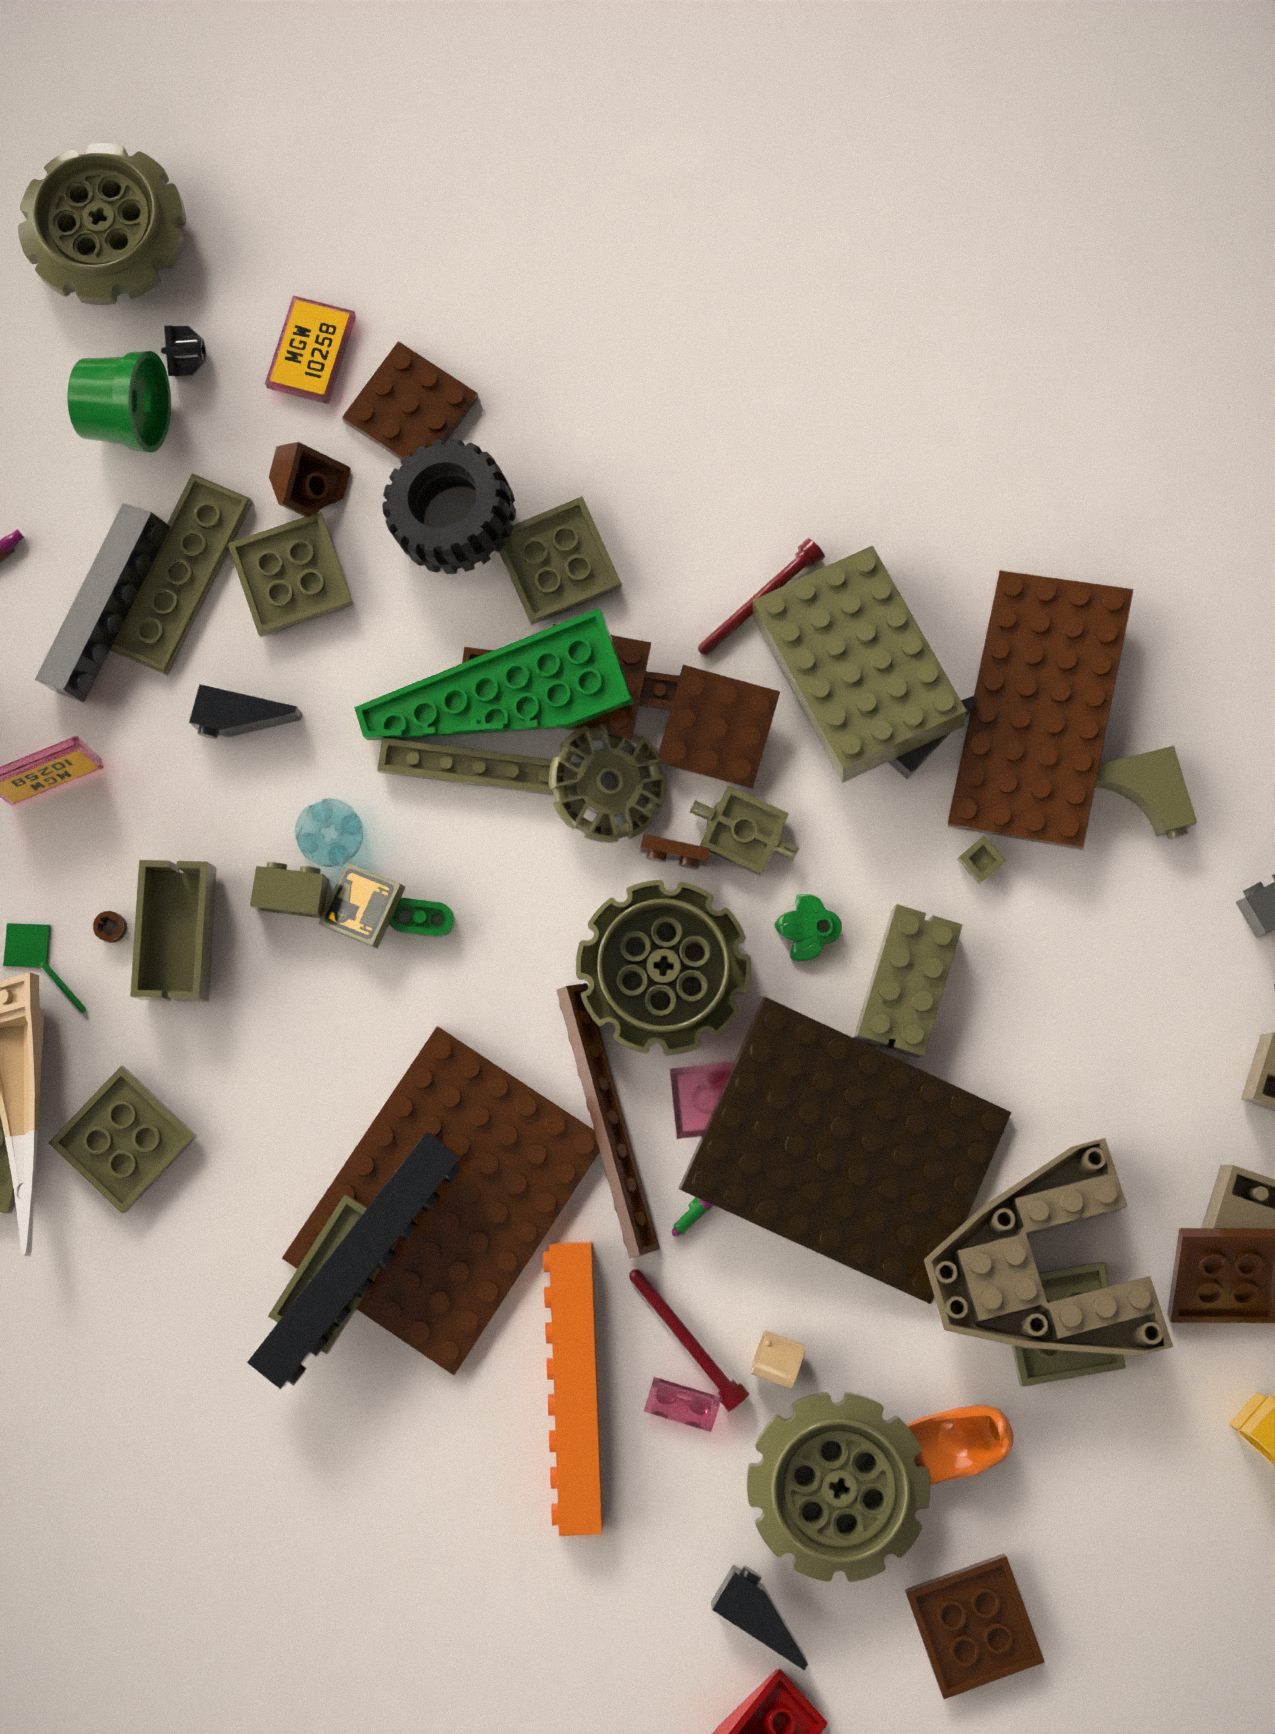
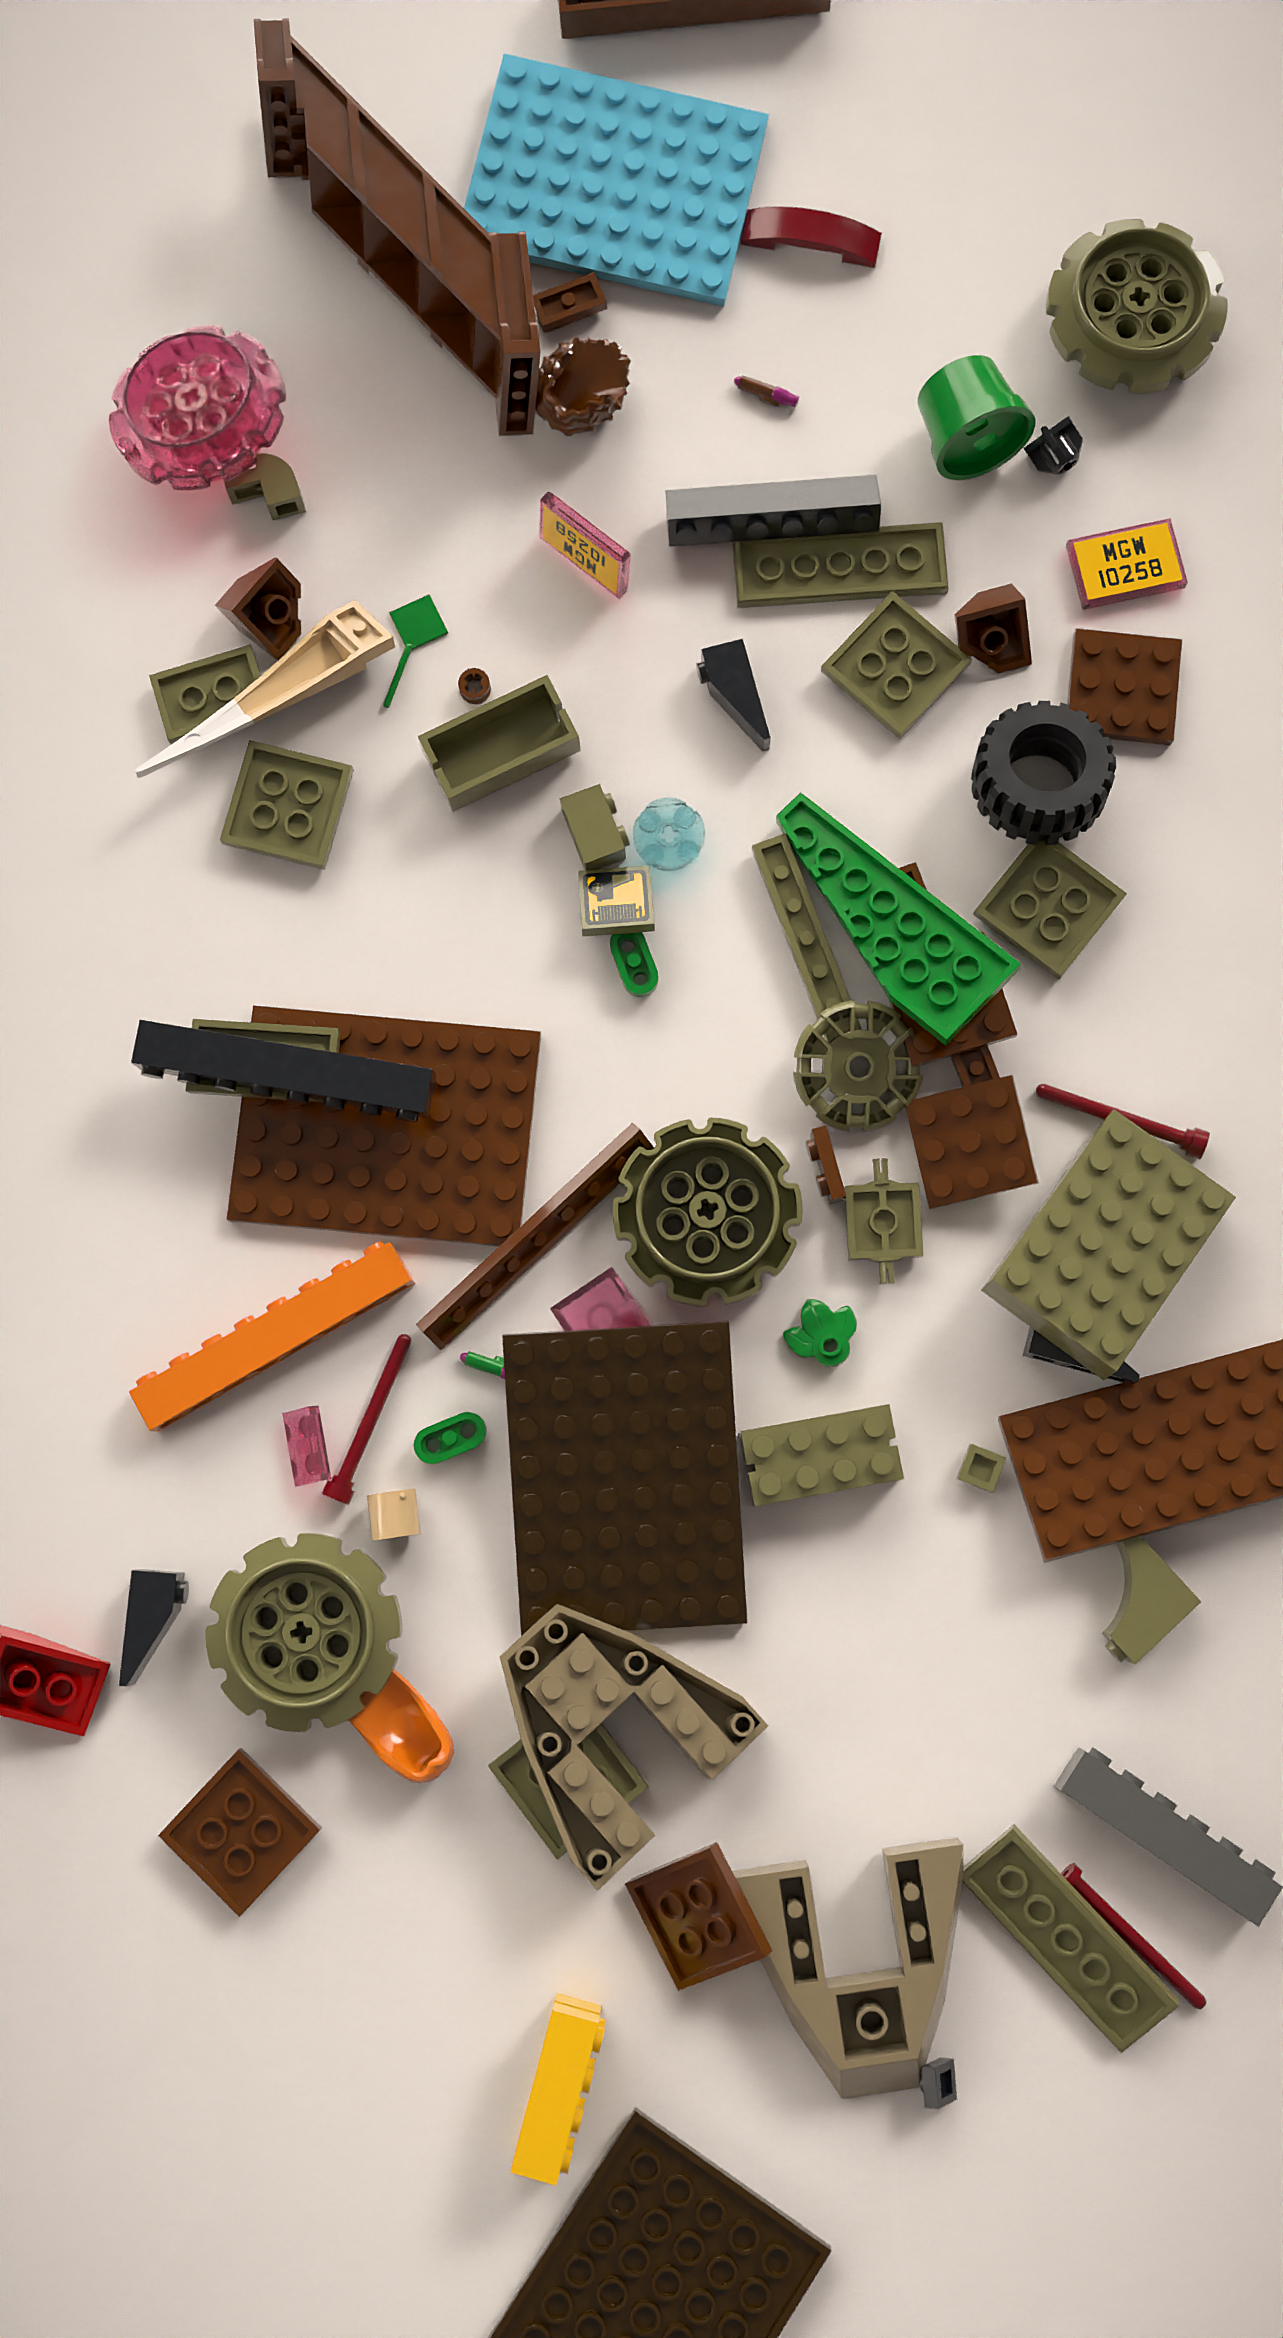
camera: 65 degrees right, 0 degrees up
(737, 1278) = (450, 1438): none -> green plate

